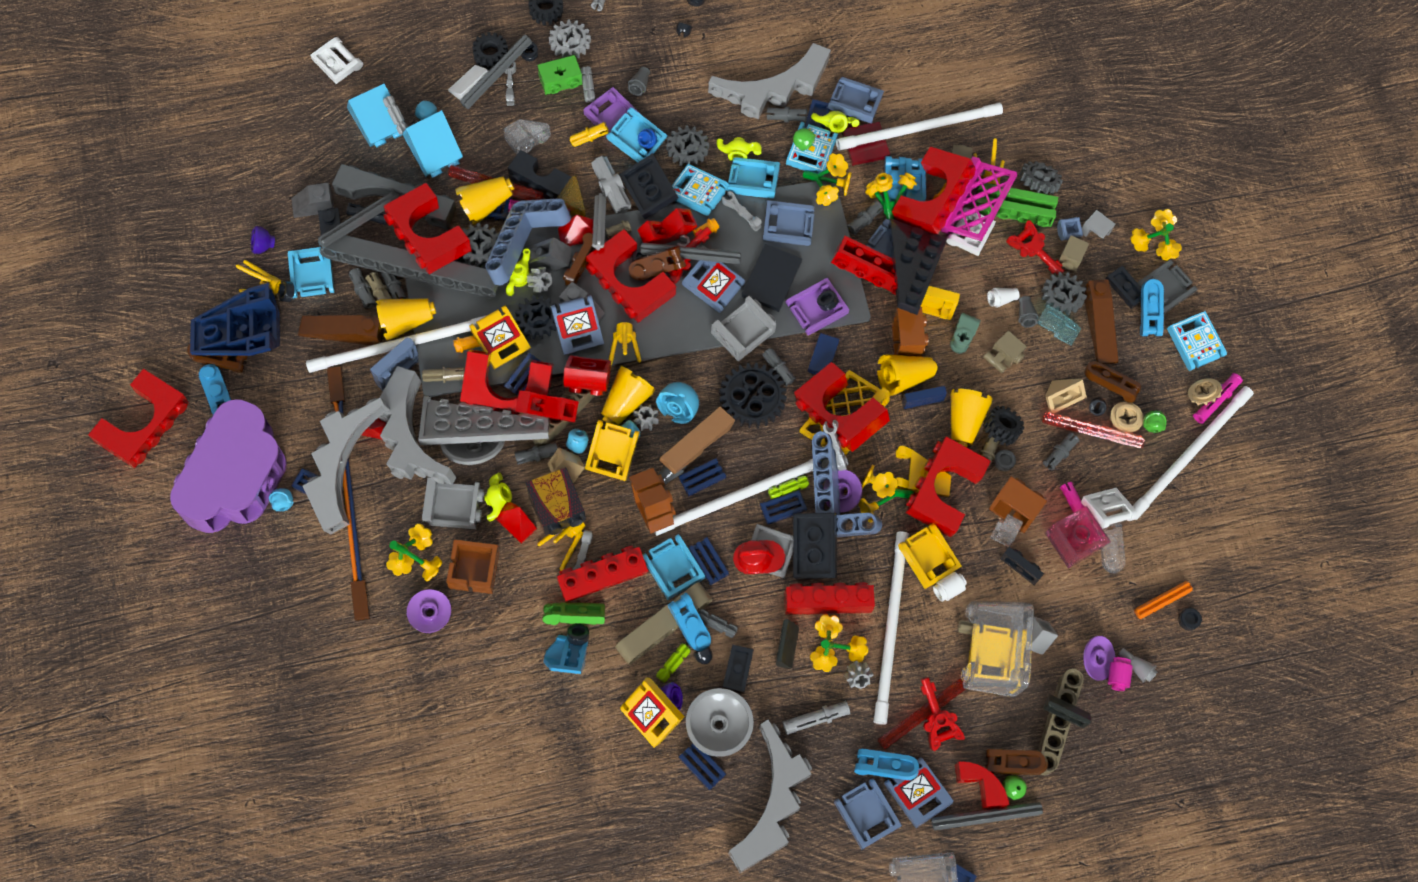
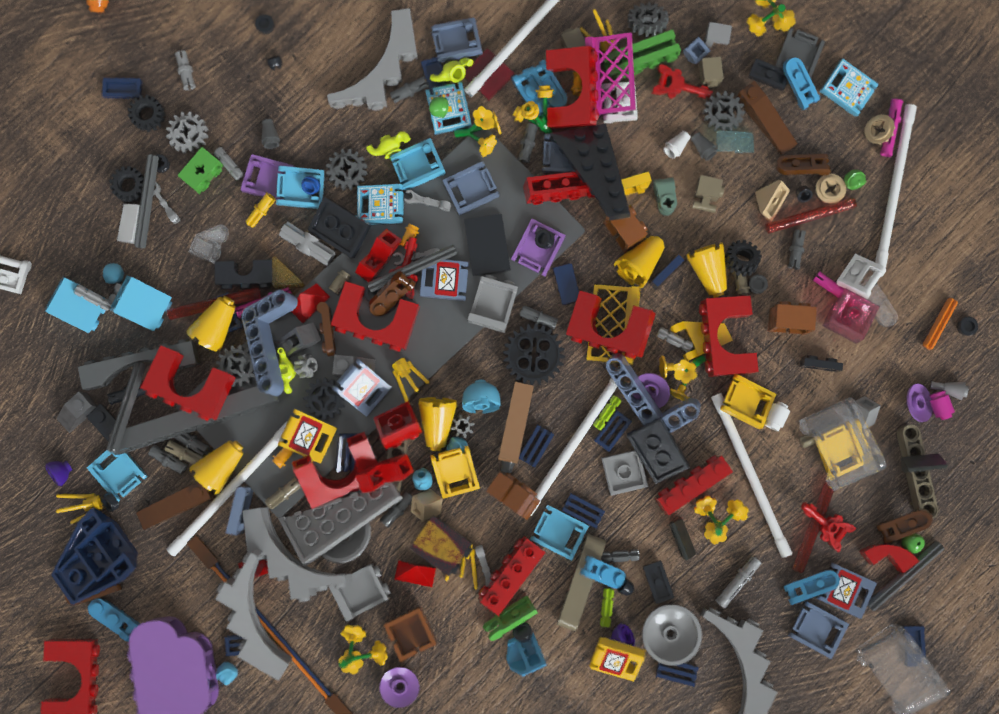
camera: 25 degrees left, 15 degrees up
(497, 496) = (390, 563): neon yellow piece -> none
(599, 217) = (320, 285): light grey axle -> none
(759, 557) = (620, 484): red piece -> none
(841, 459) = (635, 367): light grey piece -> none
(858, 675) = (750, 530): light grey gear -> none
(894, 461) = (675, 339): none -> light grey axle
(1006, 530) = (793, 343): clear brick -> none

